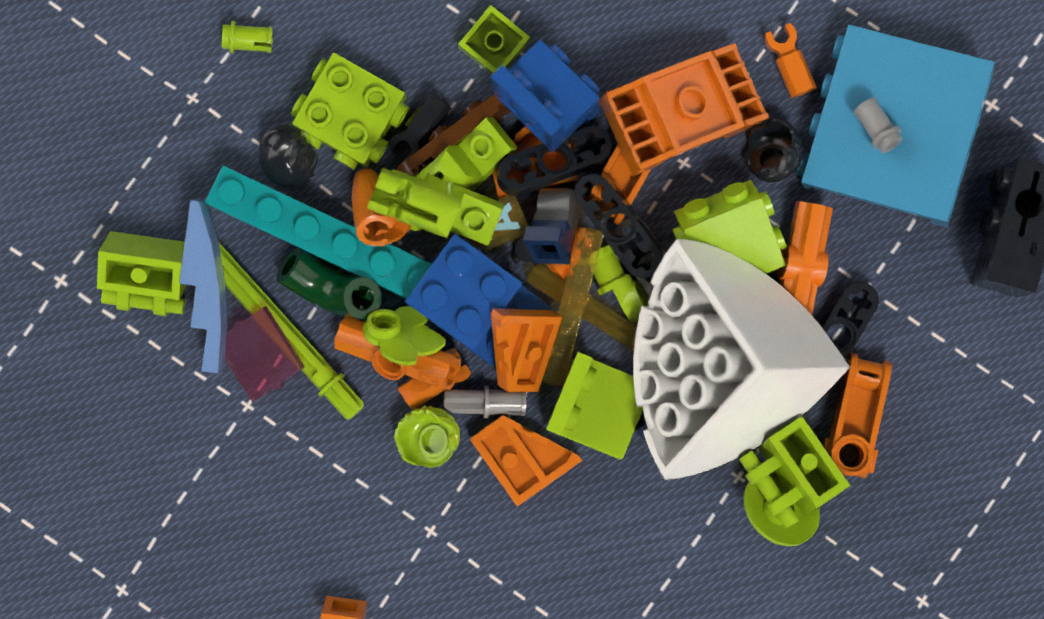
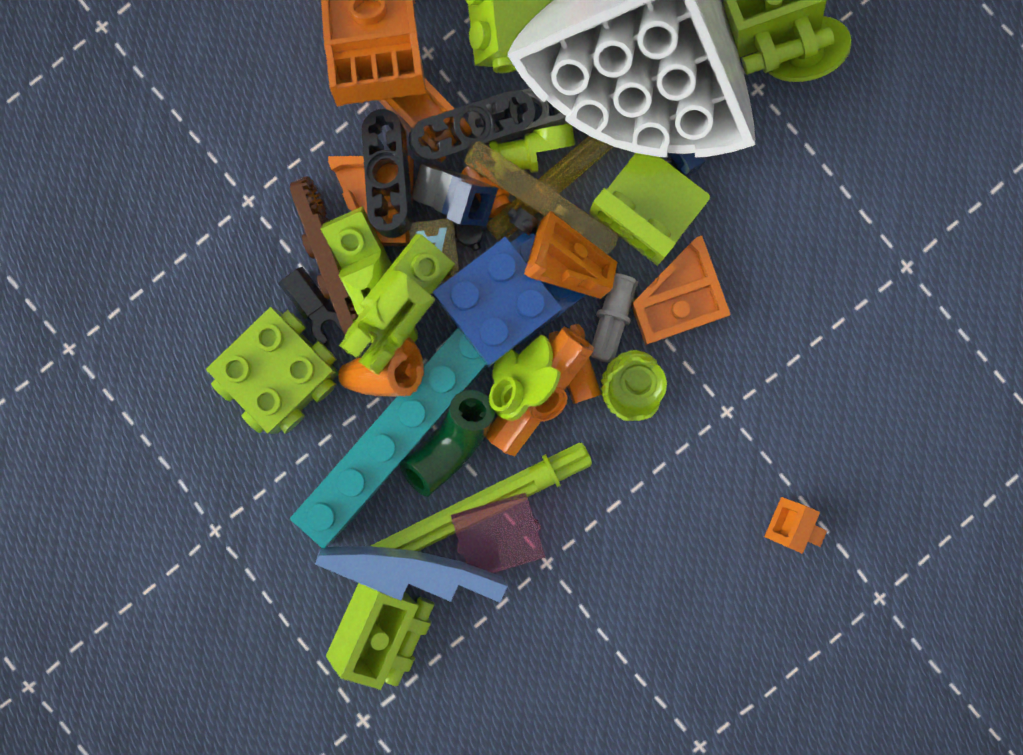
camera: 70 degrees left, 0 degrees up
(247, 38) = (167, 457): lime pin -> none
(287, 157) = (302, 449): black hair -> none
(494, 41) = (248, 204): lime piece -> none
(547, 94) = (313, 155): blue bracket -> none
(547, 295) = (523, 220): none -> black piece

